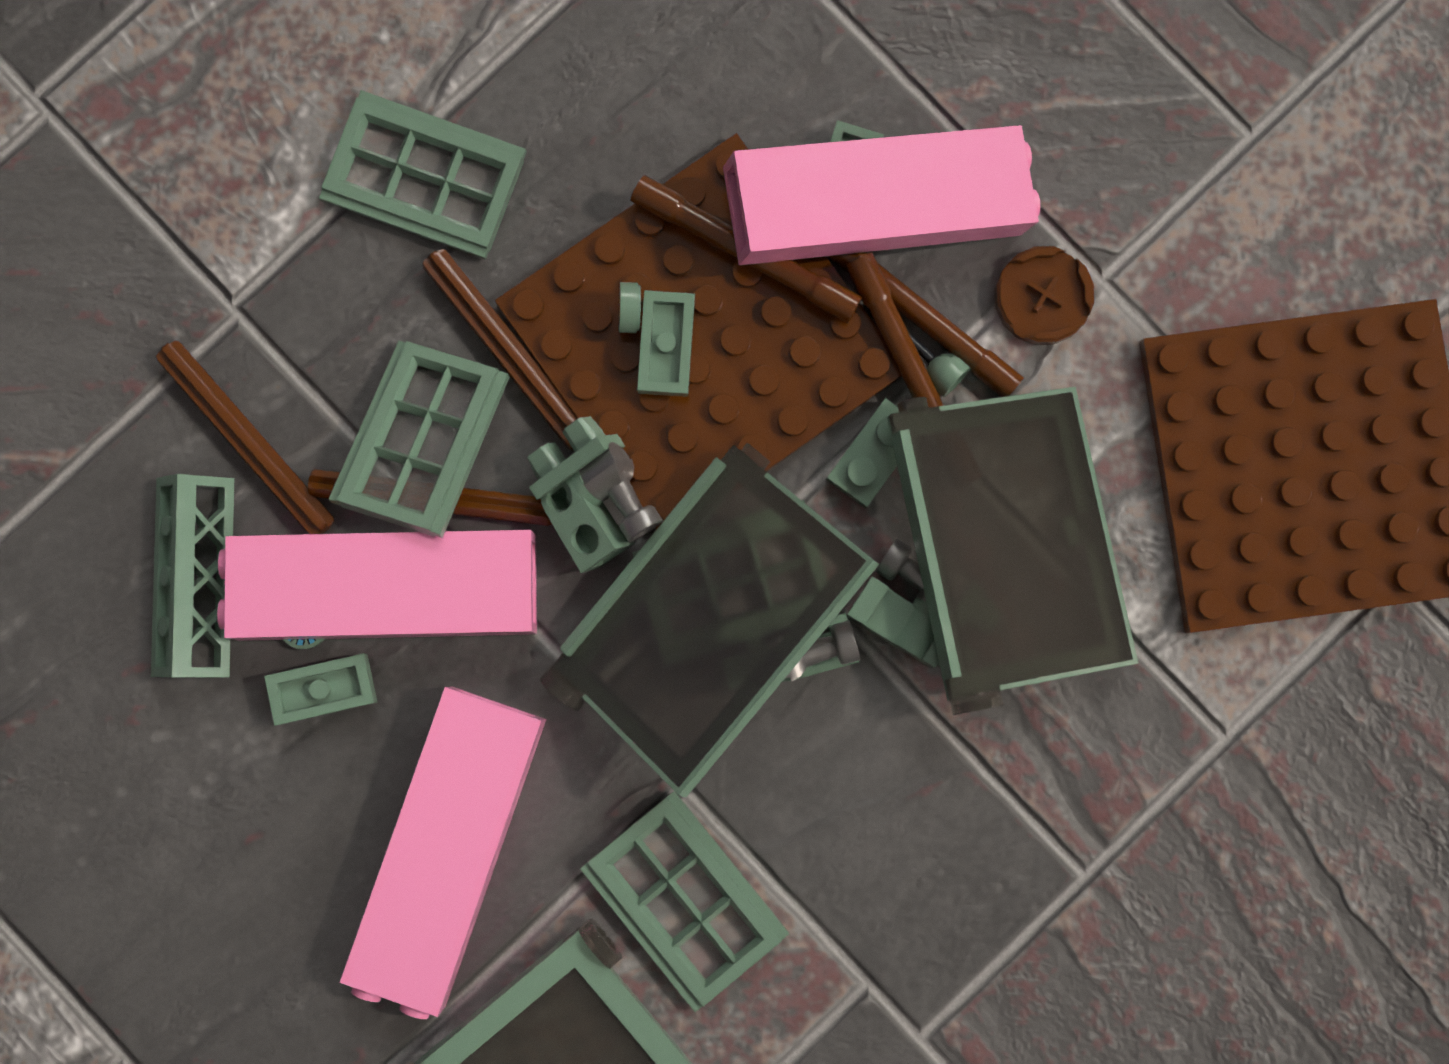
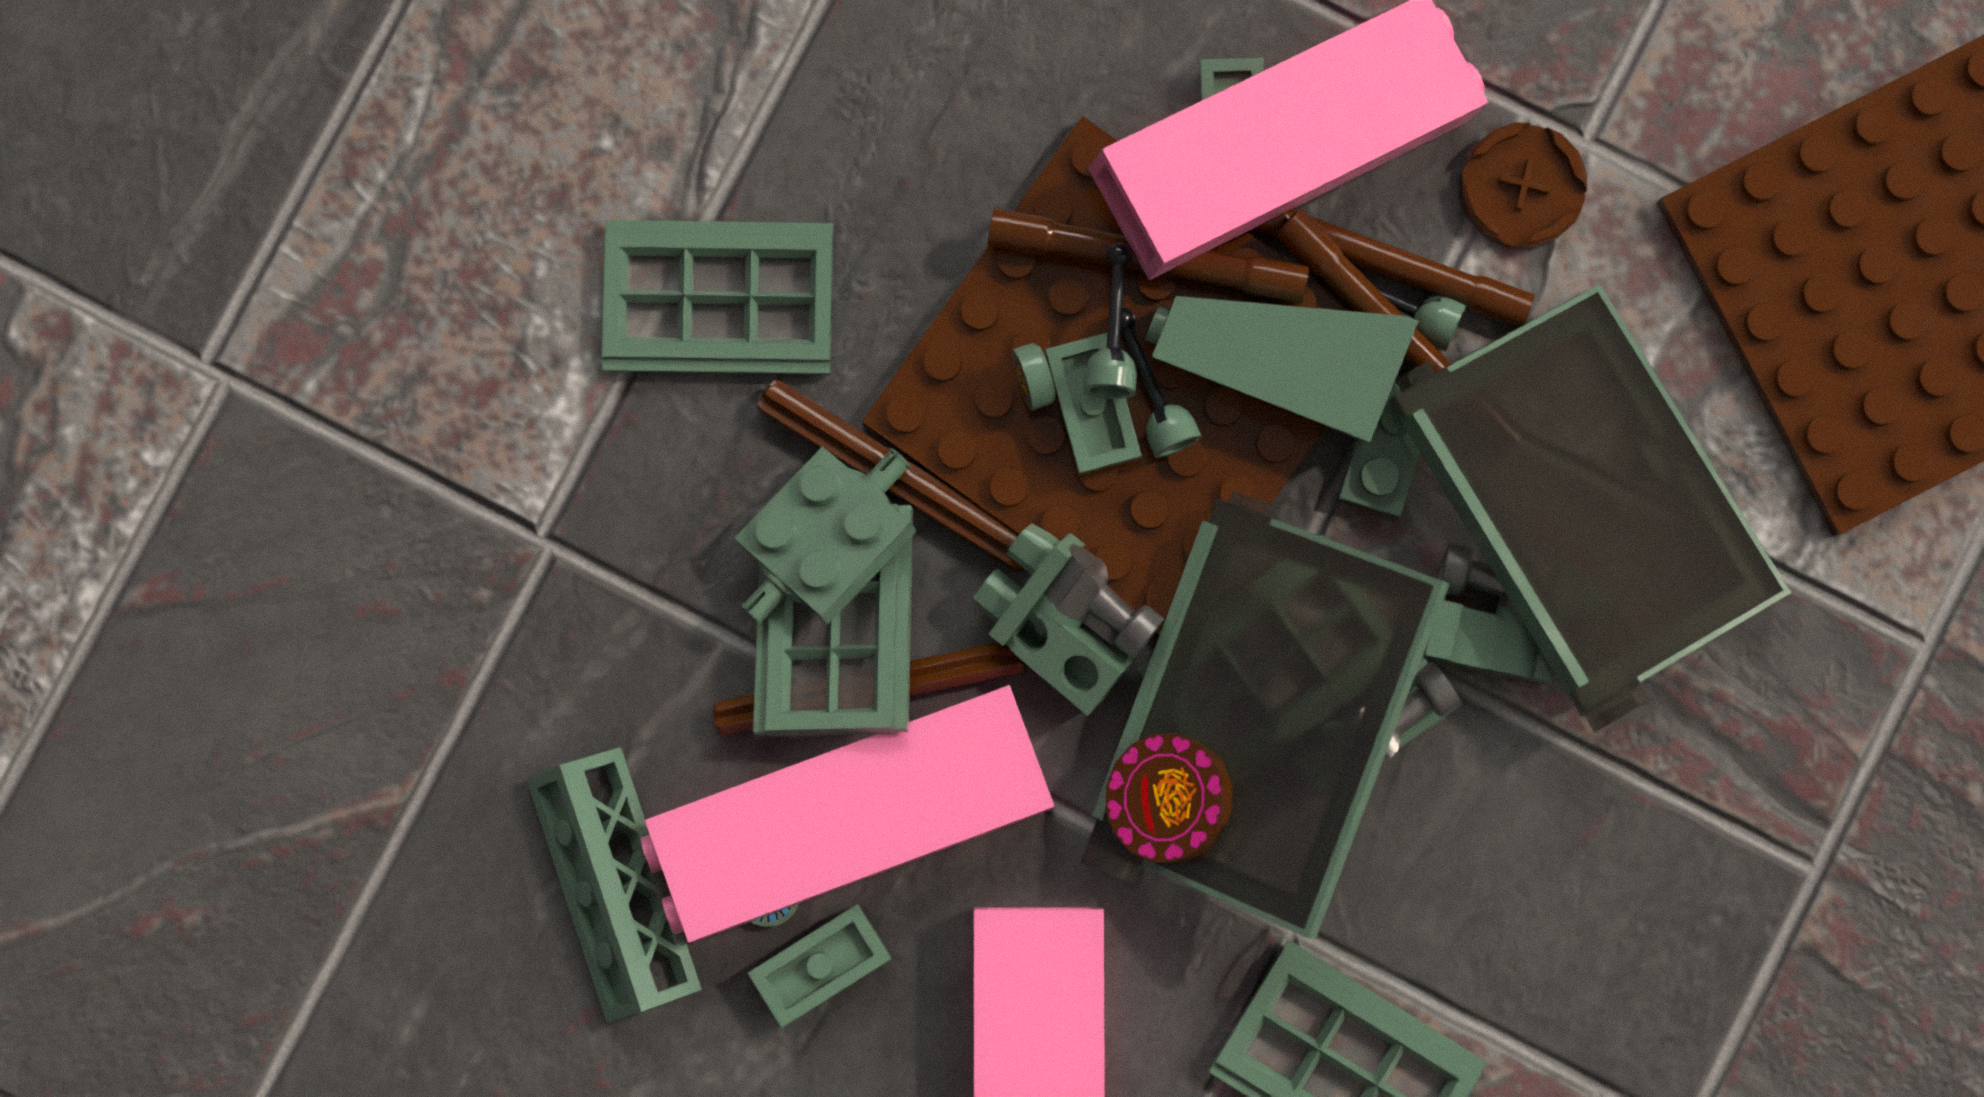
camera: 15 degrees left, 0 degrees up
(244, 438) = (617, 694): reddish brown axle -> none
(434, 372) = (825, 535): none -> sand green plate
(617, 654) = (1168, 798): none -> reddish brown tile
(685, 320) = (1111, 370): none -> hinge
(717, 380) = (1170, 425): none -> hinge
(828, 360) = (1298, 358): none -> sand green slope

